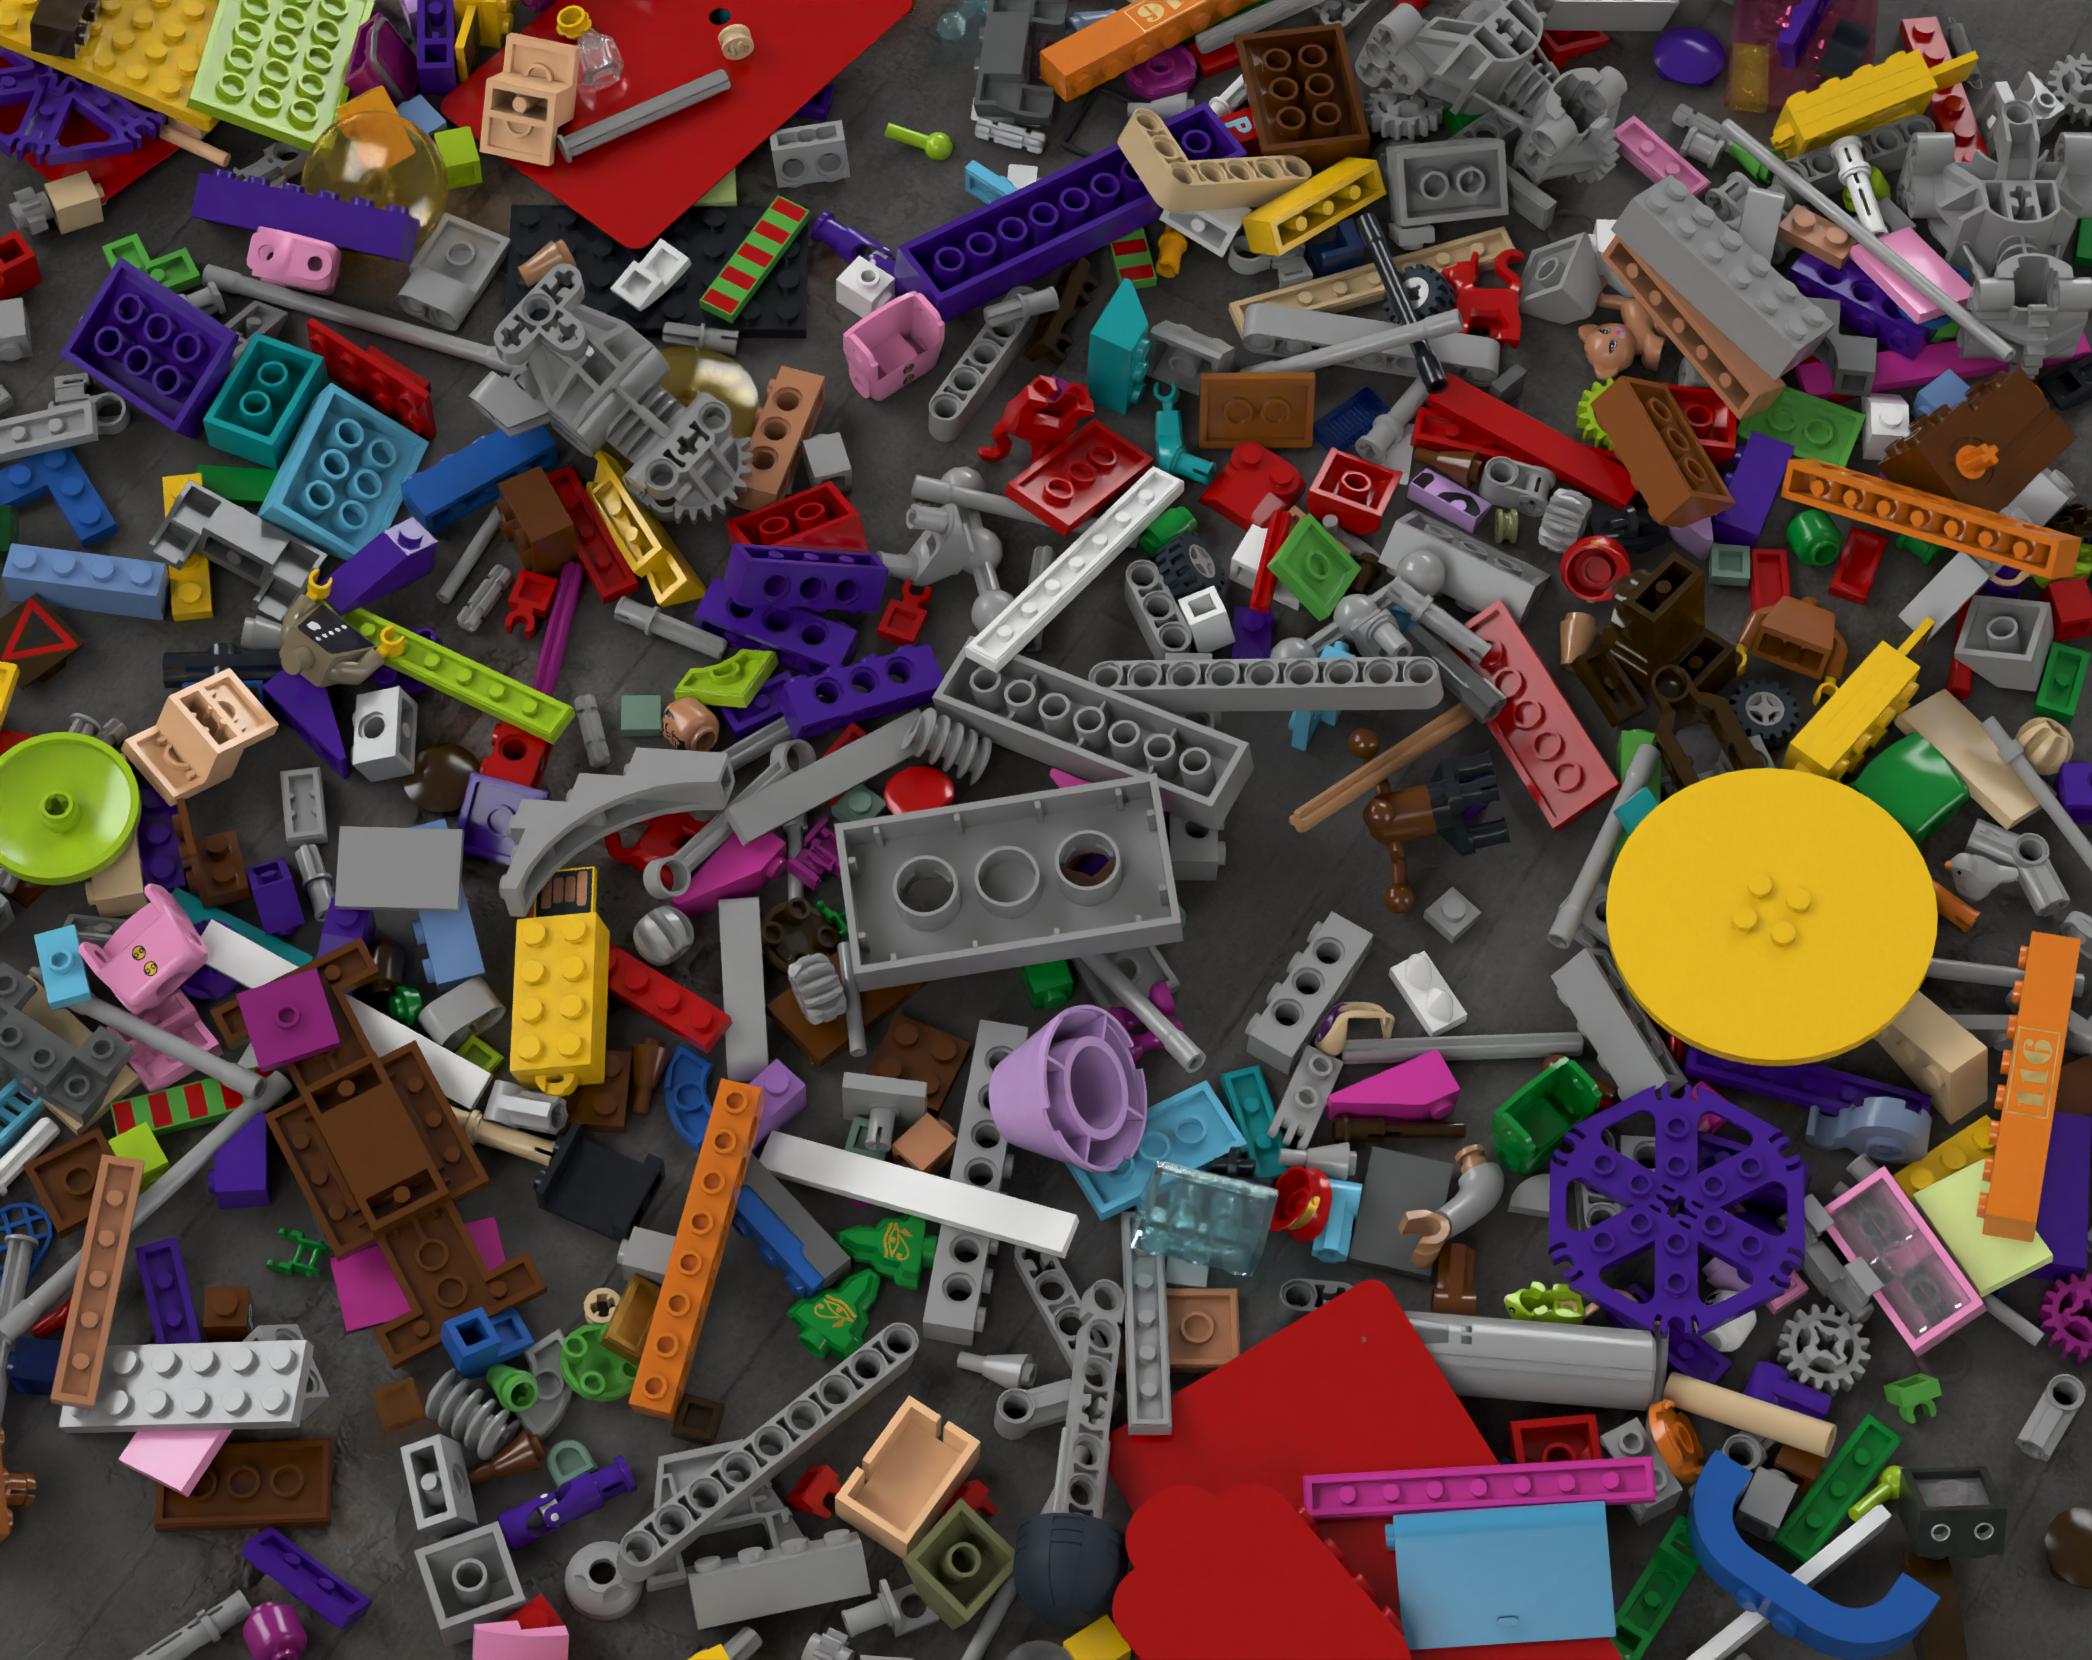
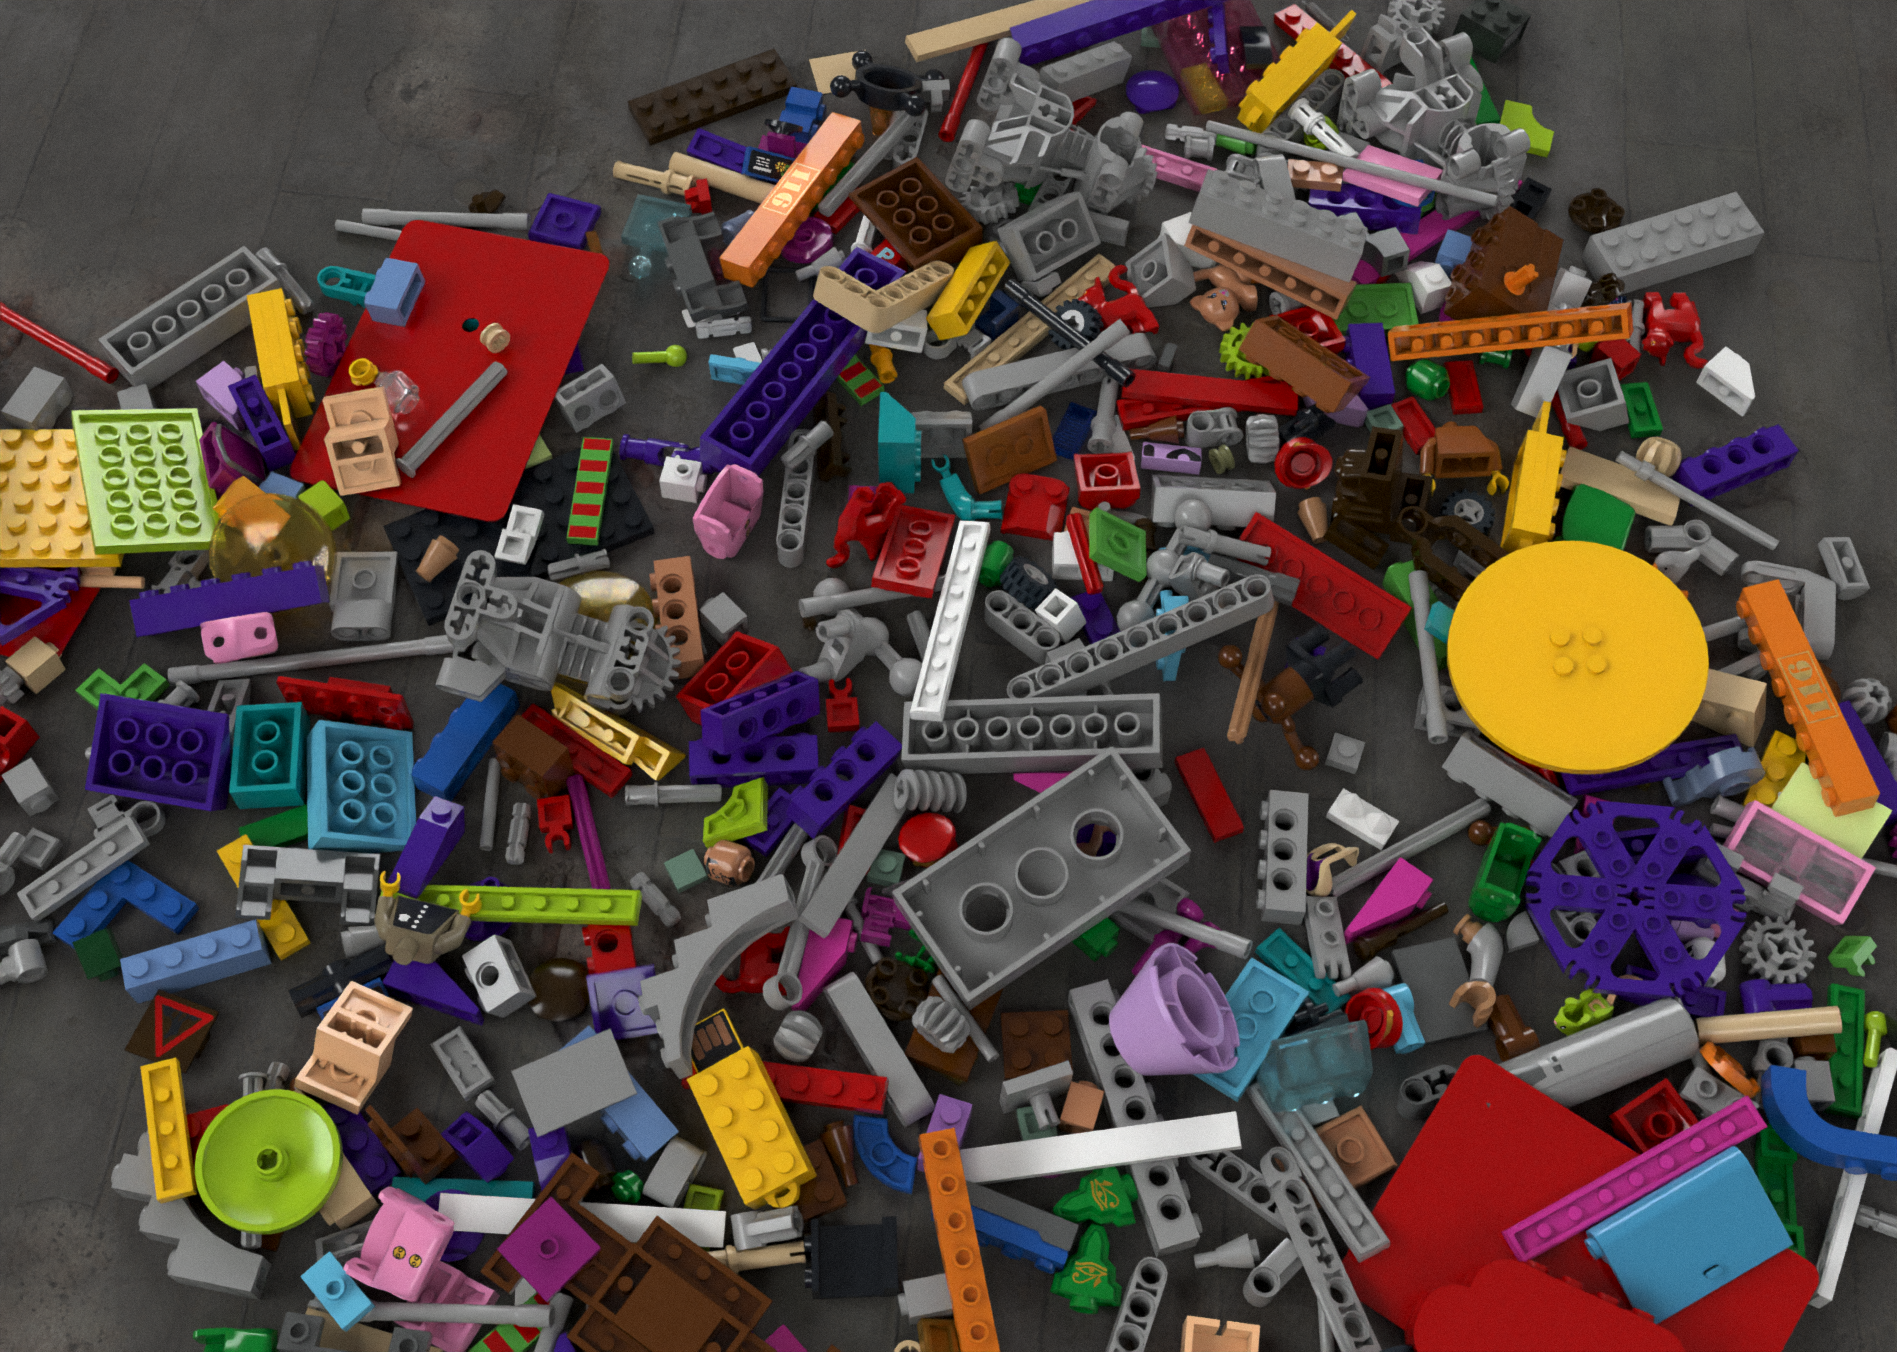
camera: 25 degrees left, 0 degrees up
(1266, 890) = (1209, 795): none -> red tile

